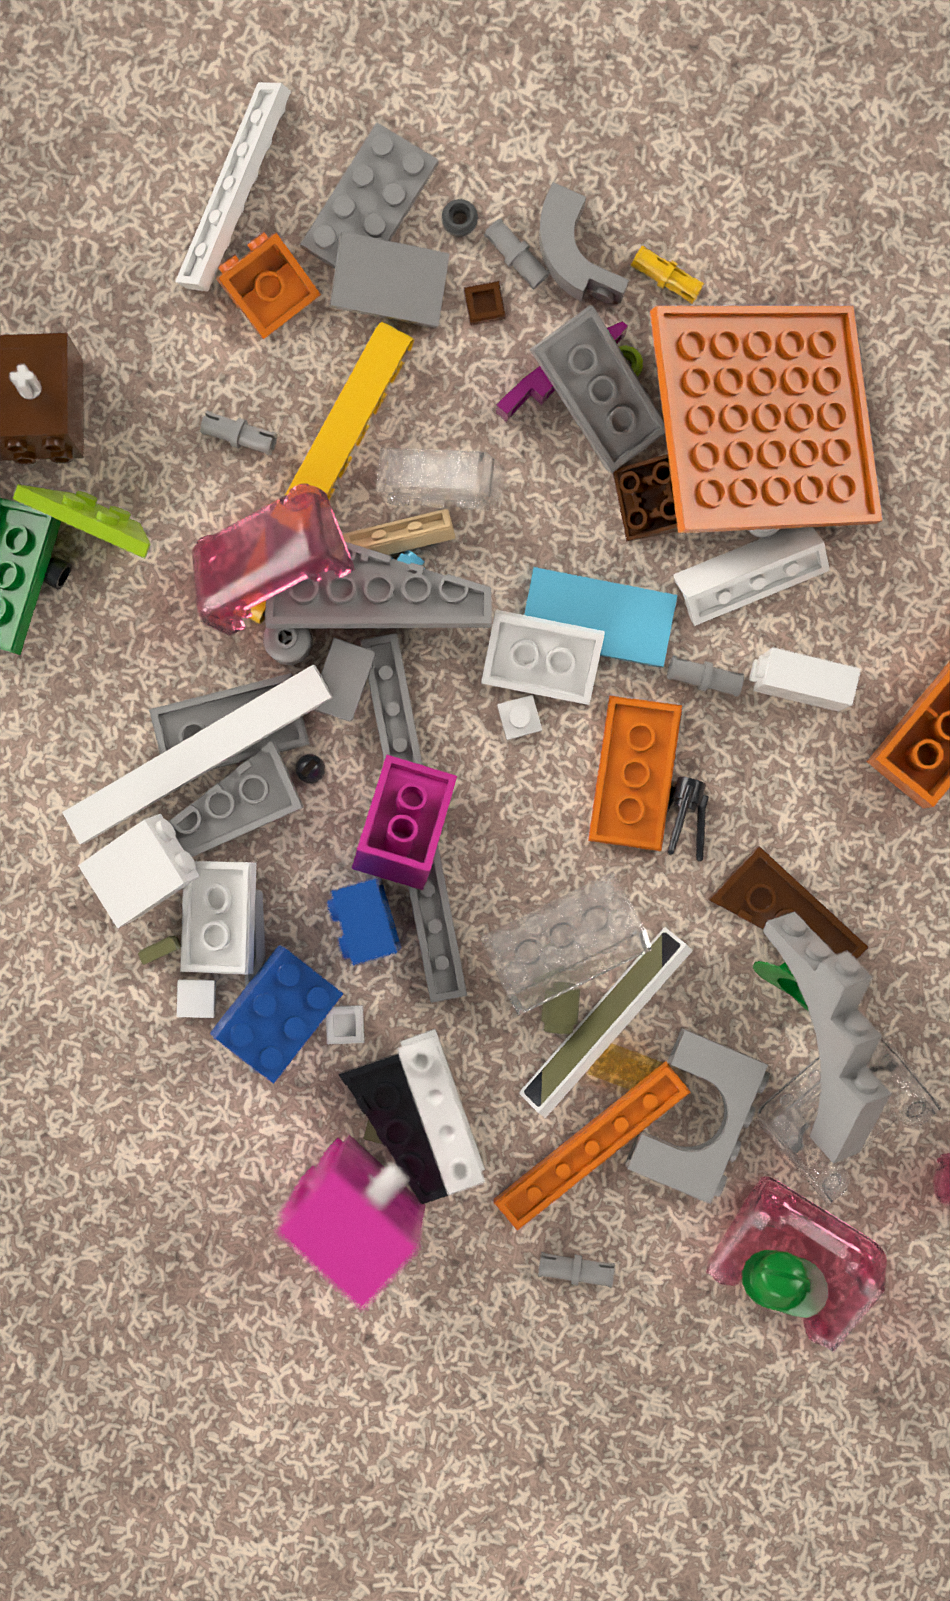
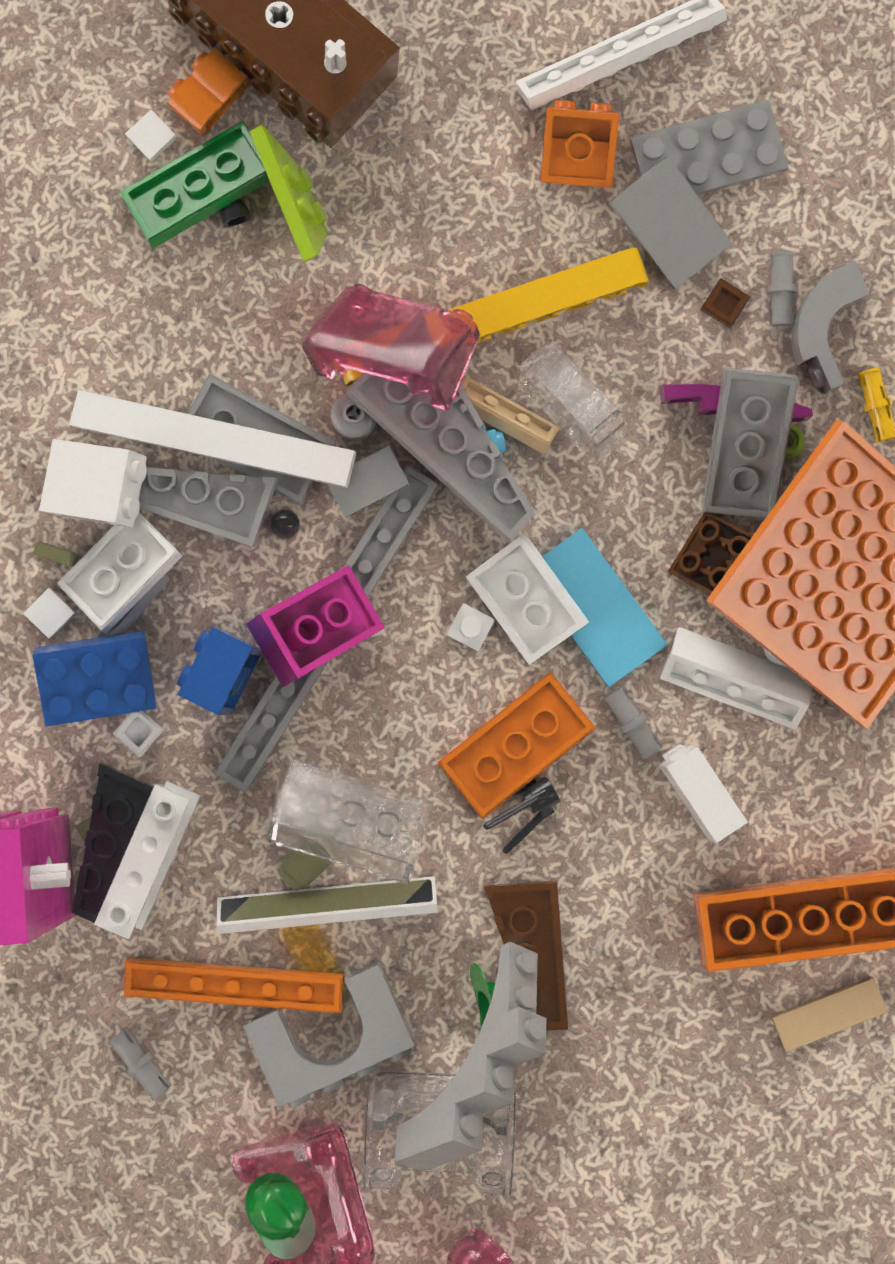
camera: 40 degrees right, 0 degrees up
(238, 433) = (459, 233): light grey pin -> none
(455, 207) = (772, 216): dark grey plate -> none

